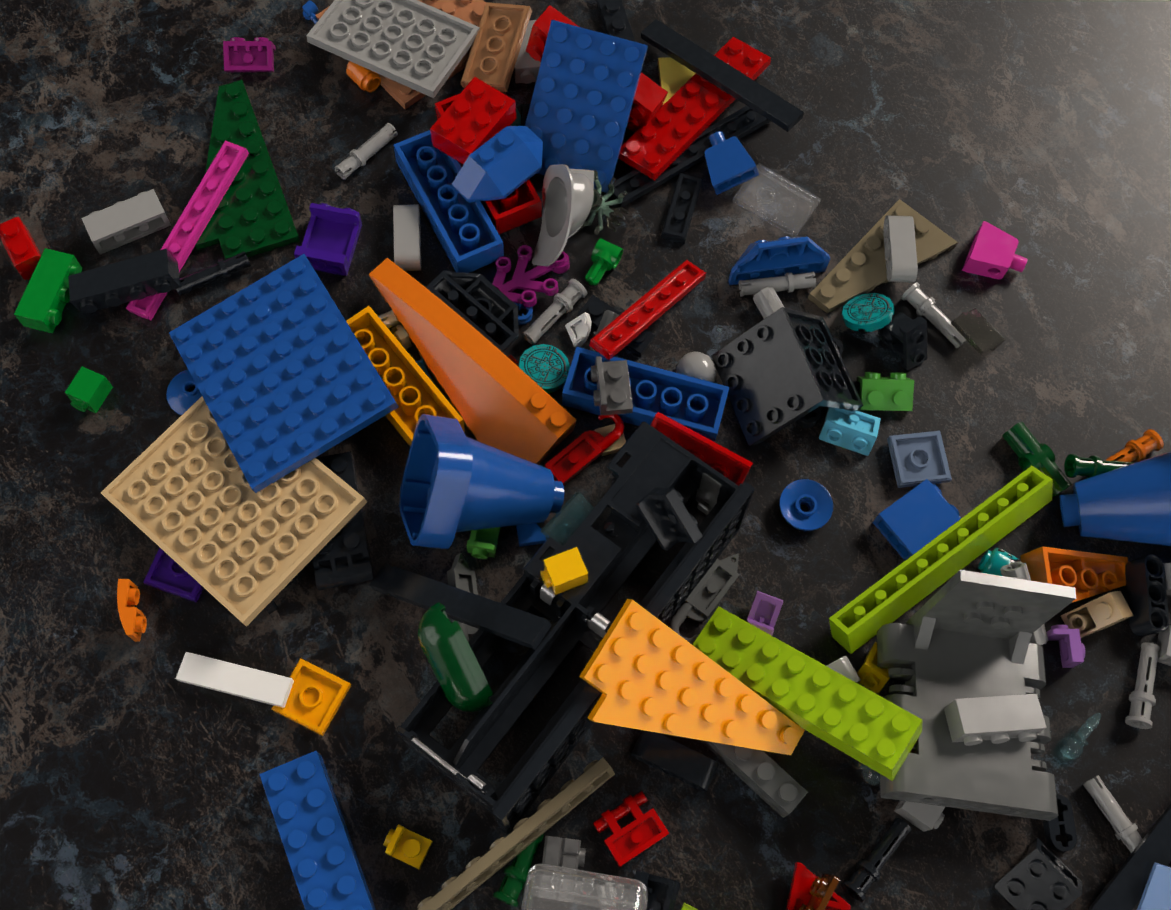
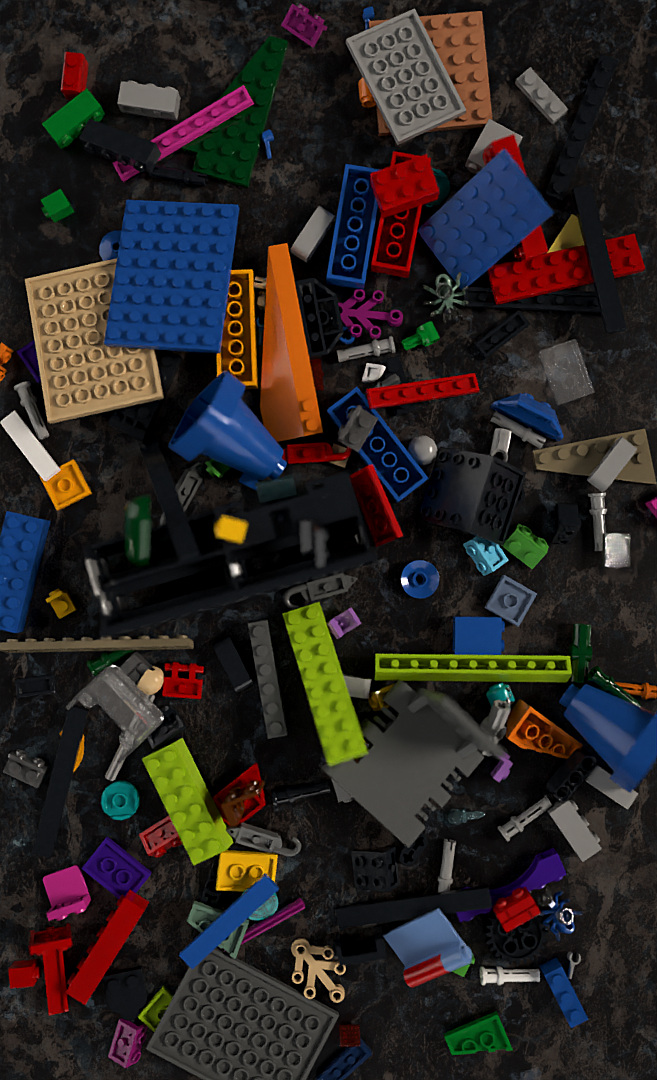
camera: 45 degrees right, 20 degrees up
(199, 629) = (29, 401): none -> light grey pin
(285, 180) = (267, 136): none -> blue hand
(330, 238) = (265, 201): dark purple panel -> none
(358, 157) = (323, 153): light grey pin -> none
(497, 45) = (467, 132): medium nougat tile -> none
(500, 165) = (401, 229): blue wedge -> none
(545, 366) = (332, 382): teal tile -> none
(566, 205) = (420, 289): light grey piece -> none
(594, 853) = (151, 681): none -> tan hair
(670, 687) = (243, 629): light orange wing -> none
(728, 163) = (552, 325): blue torso -> none
(868, 312) = (557, 489): teal tile -> none
(995, 719) = (414, 778): light grey brick -> none
(1098, 614) = (533, 763): tan slope -> none

